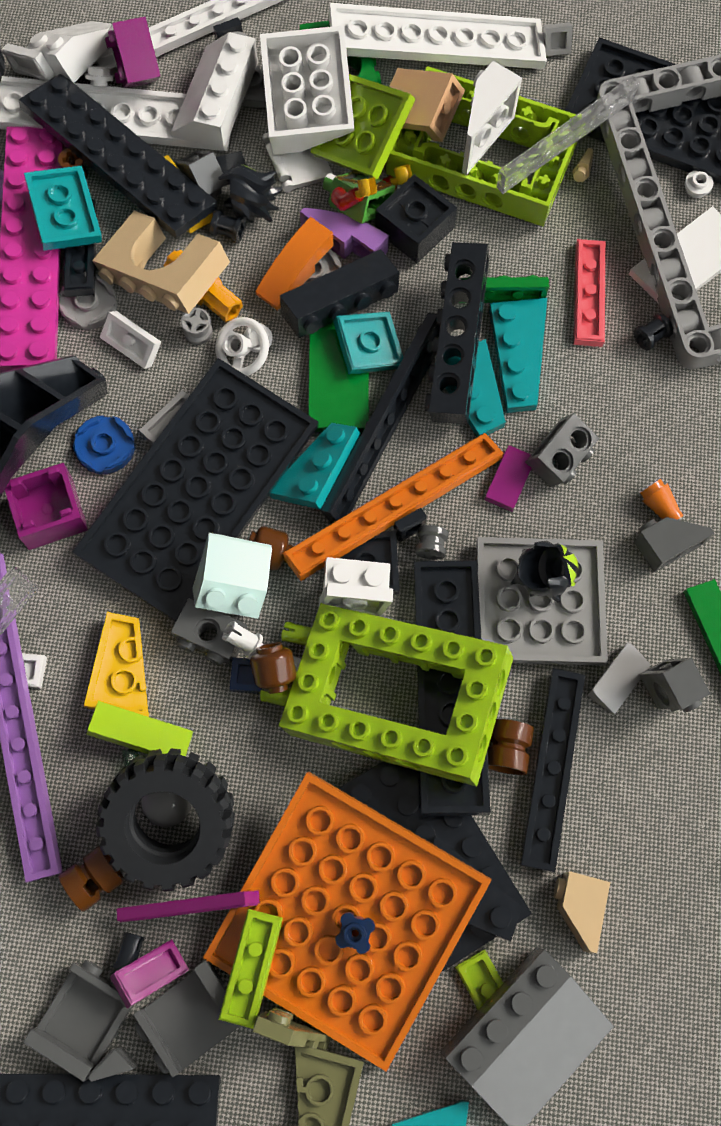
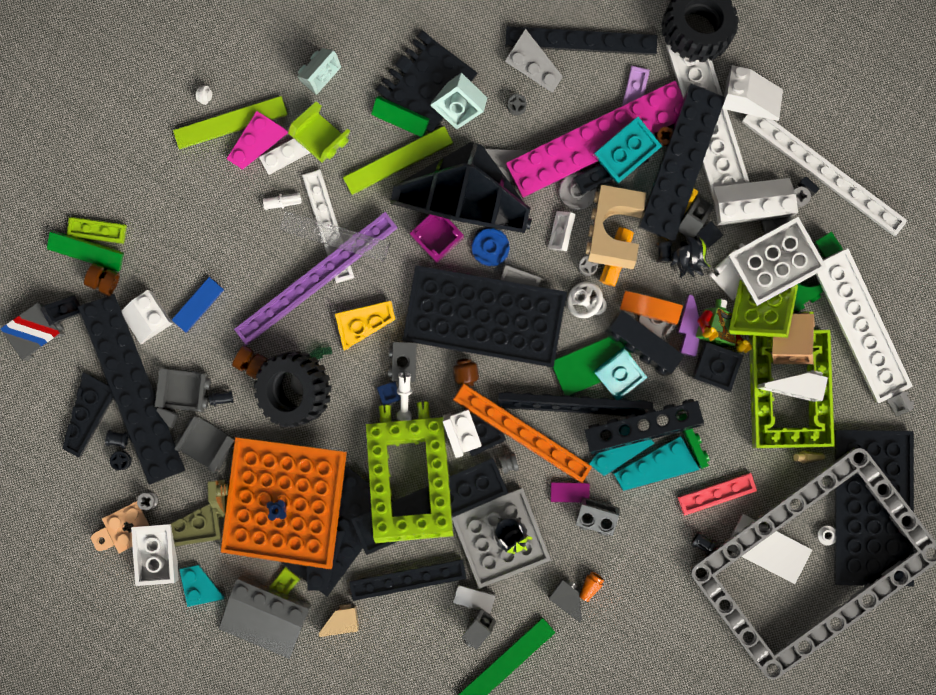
camera: 75 degrees right, 15 degrees up
(28, 62) = (726, 70): white tile -> none
(98, 75) = (736, 120): white plate -> none
(133, 53) = (756, 138): magenta container -> none
(137, 730) = (333, 350): lime tile -> none
(149, 973) = (216, 414): magenta tile -> none
(188, 906) = (255, 419): magenta tile -> none
(232, 576) = (436, 362): light aqua slope -> none
(251, 968) = (239, 465): lime tile -> none
(273, 667) = (395, 408): reddish brown head -> none
(316, 470) = (526, 379): teal wing -> none
(409, 524) = (514, 446): black tile -> none
(508, 748) = (408, 552): reddish brown wheel -> none
(567, 134) = (804, 439): clear tile -> none

